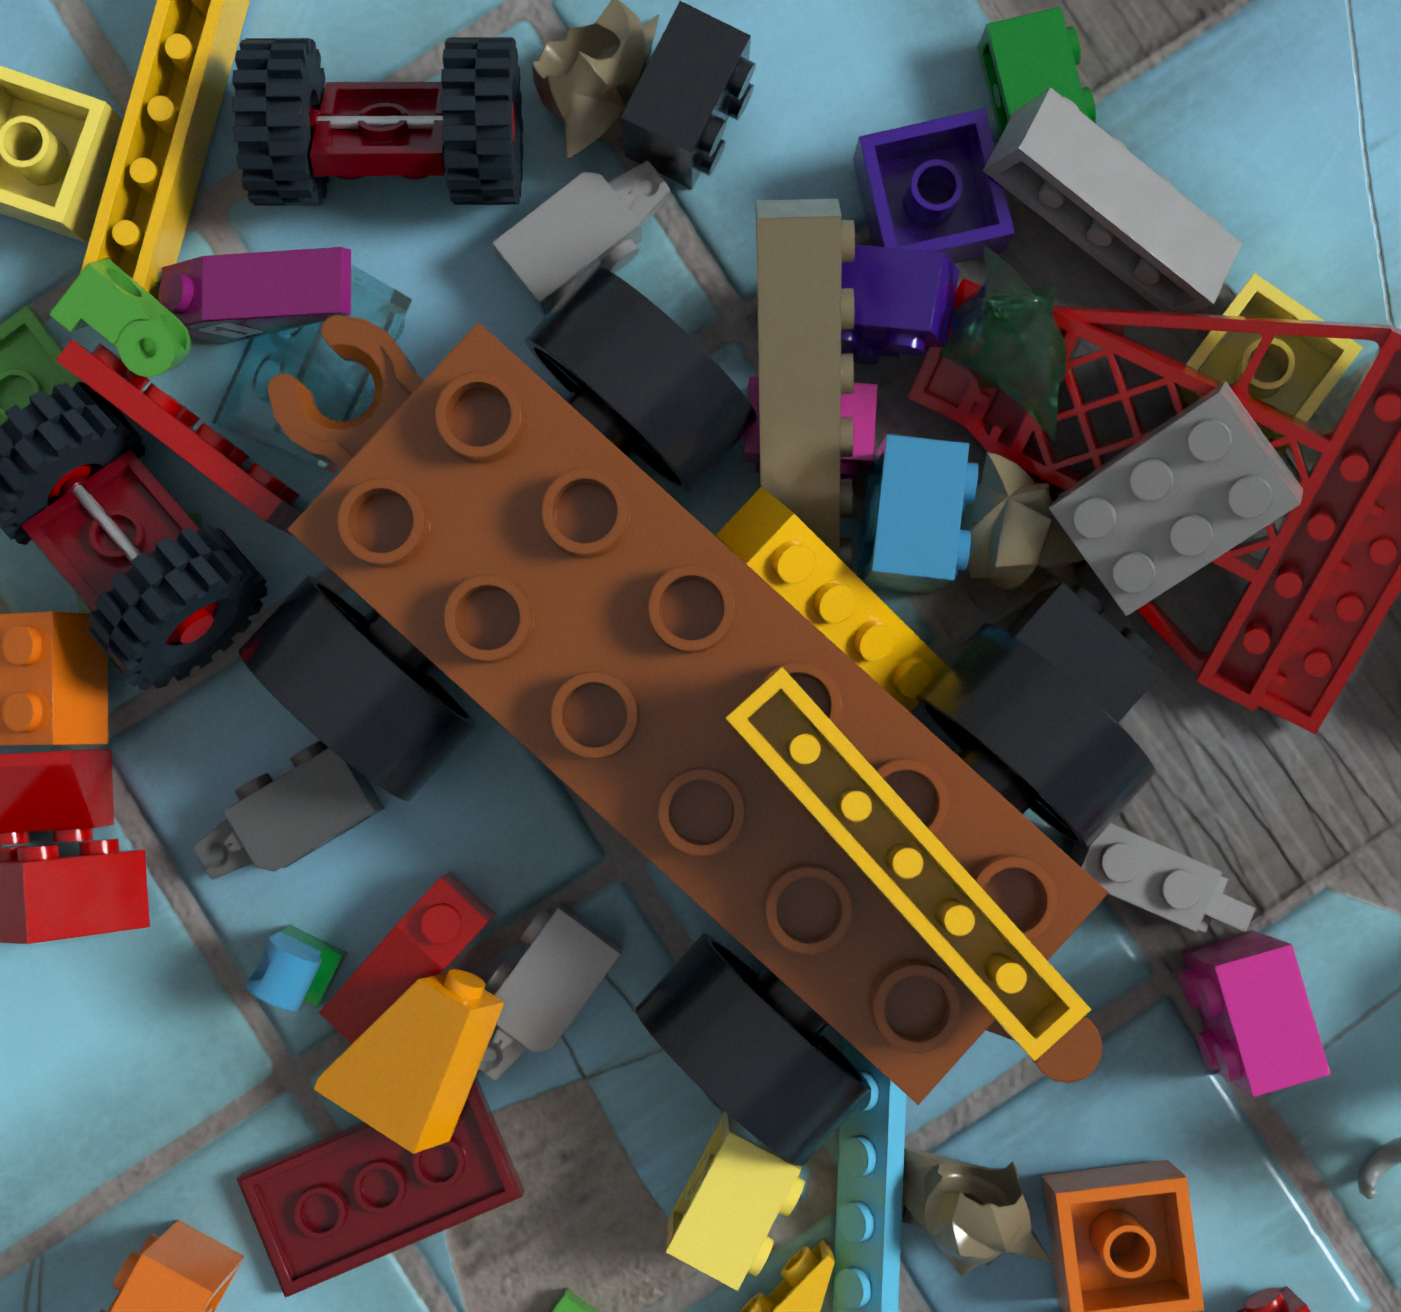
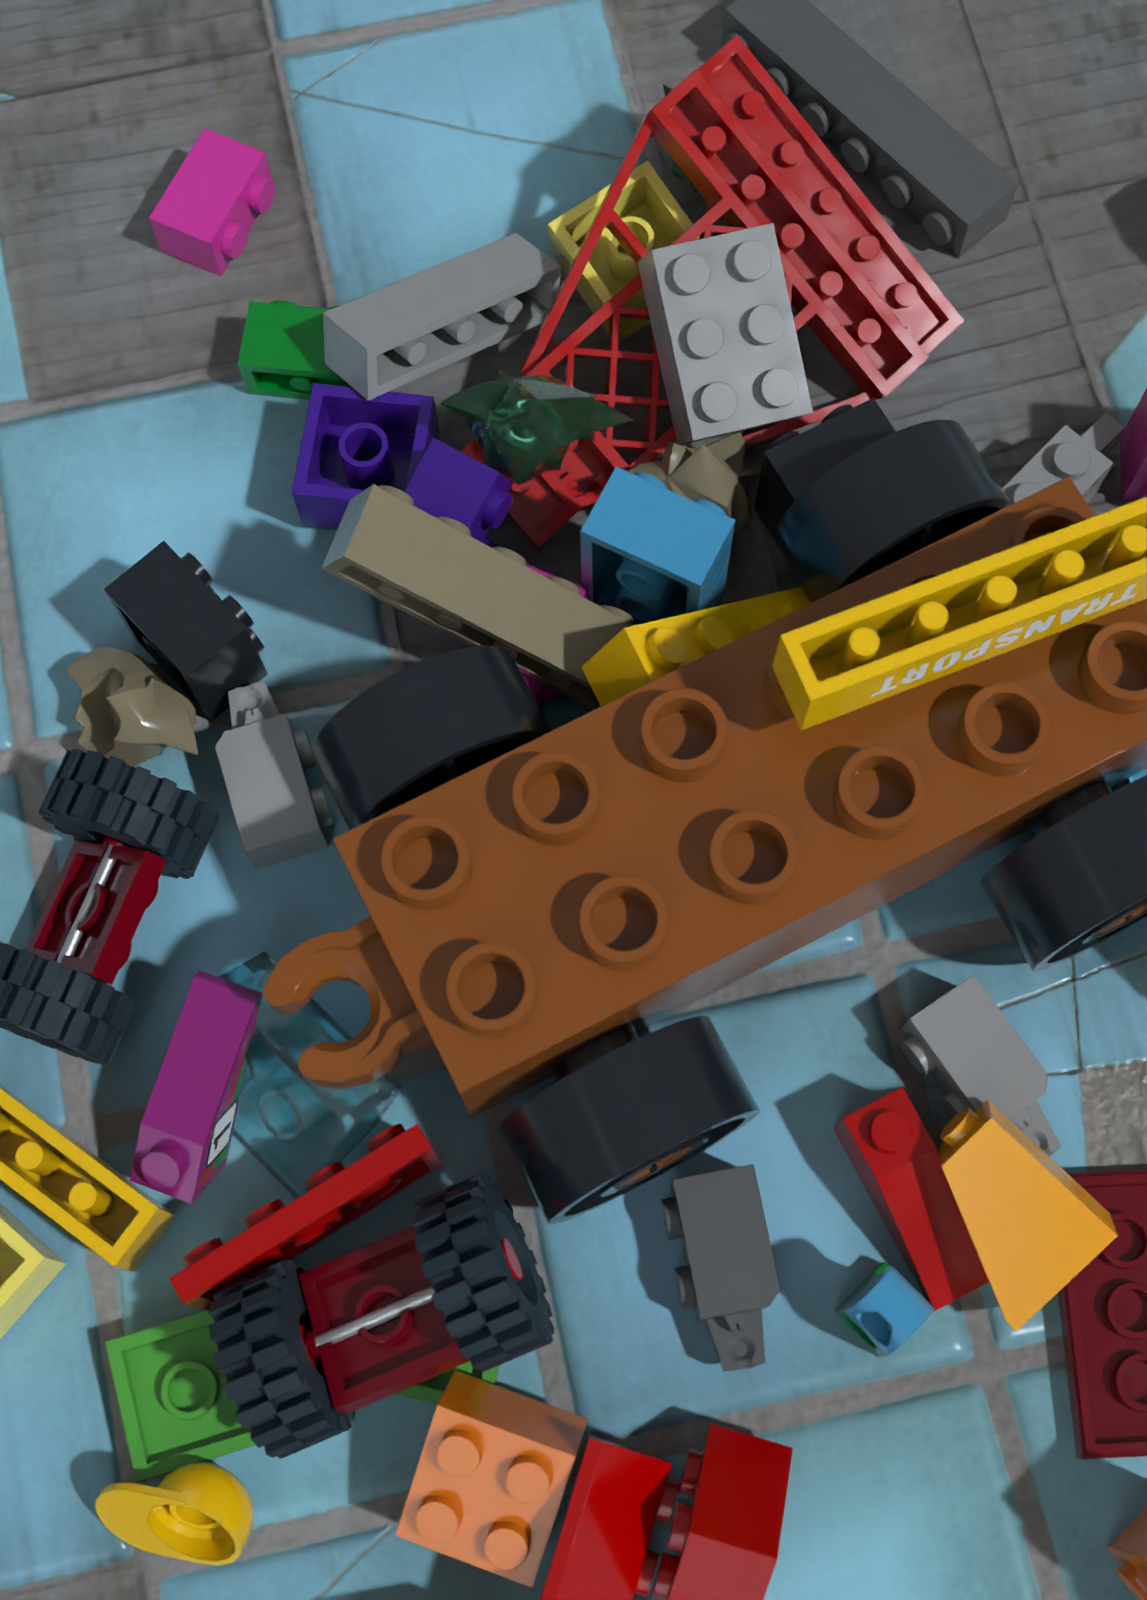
camera: 65 degrees left, 15 degrees down
(127, 316) = (191, 1206): bright green leg -> none

